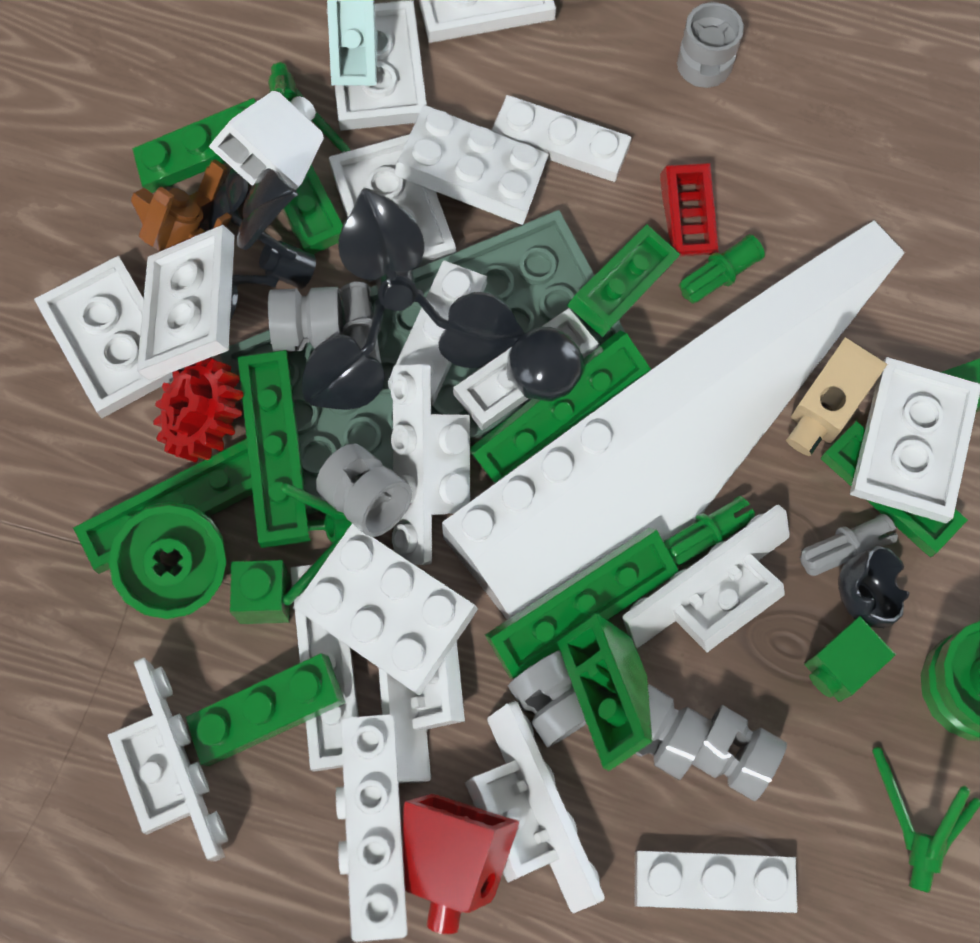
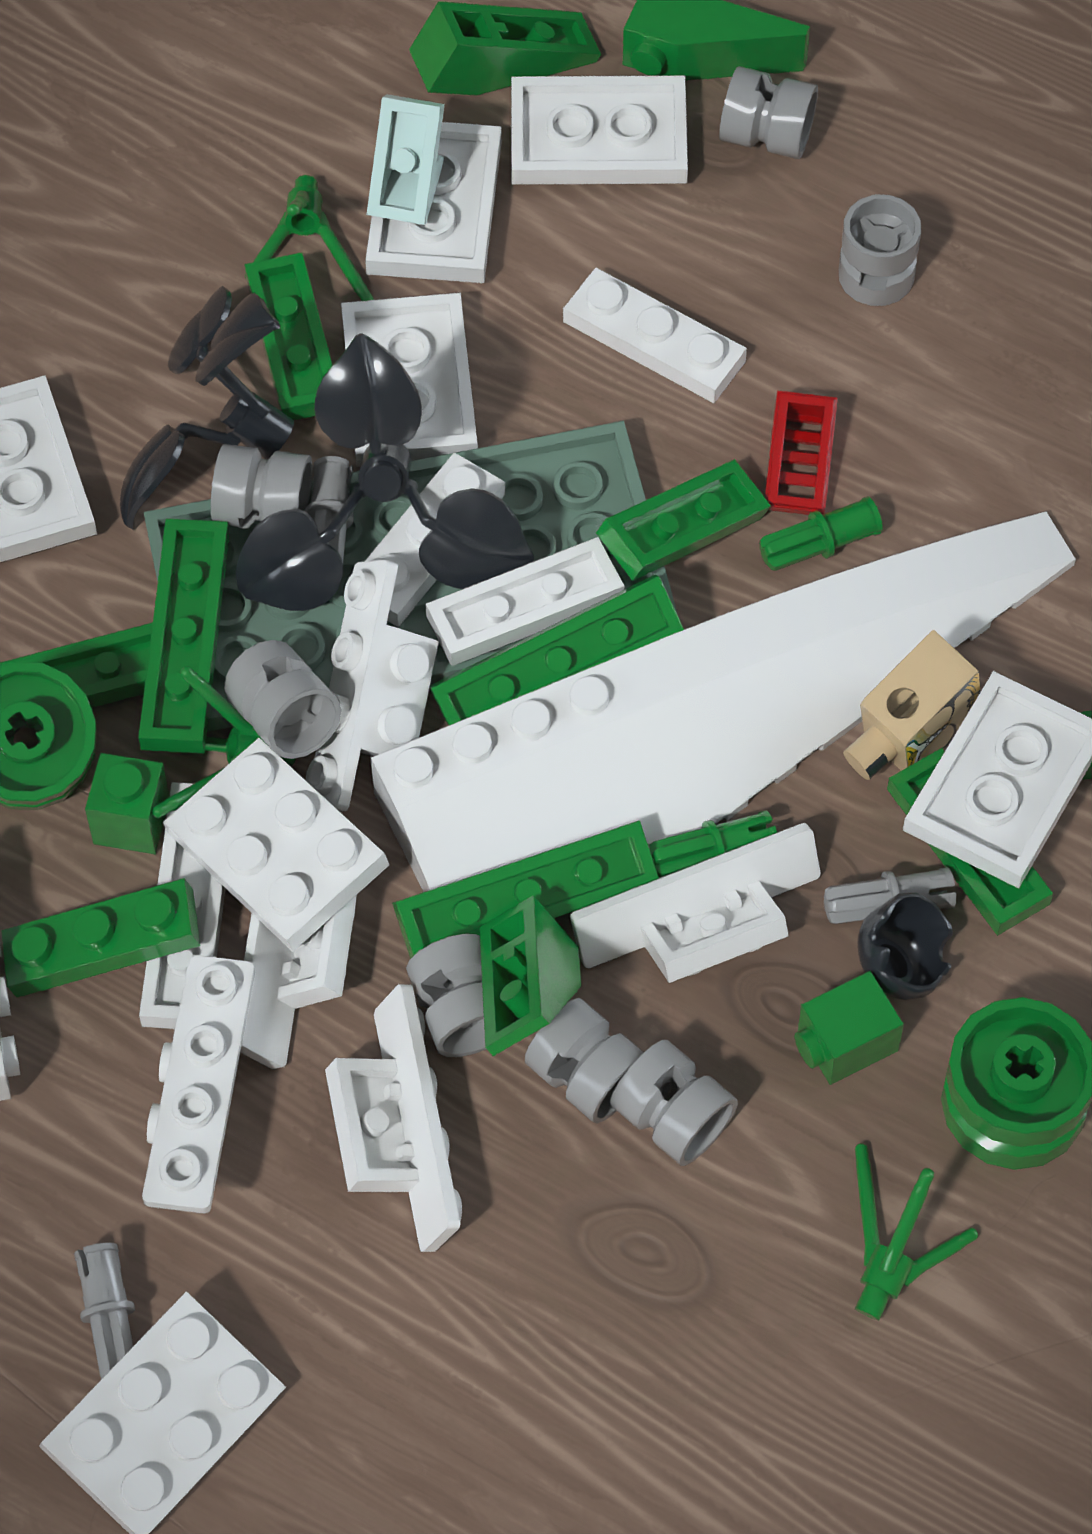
camera: 15 degrees right, 10 degrees down
(175, 215) = (126, 342): dark orange piece -> none
(182, 151) = (182, 261): green plate -> none
(187, 303) = (117, 443): white plate -> none
(198, 409) = (101, 573): red gear -> none
(271, 136) = (273, 259): white torso -> none
(453, 856) = (288, 1142): red torso -> none
(471, 164) = (524, 344): white plate -> none
(545, 364) = (545, 593): black hair -> none
(715, 881) = (609, 1252): white plate -> none

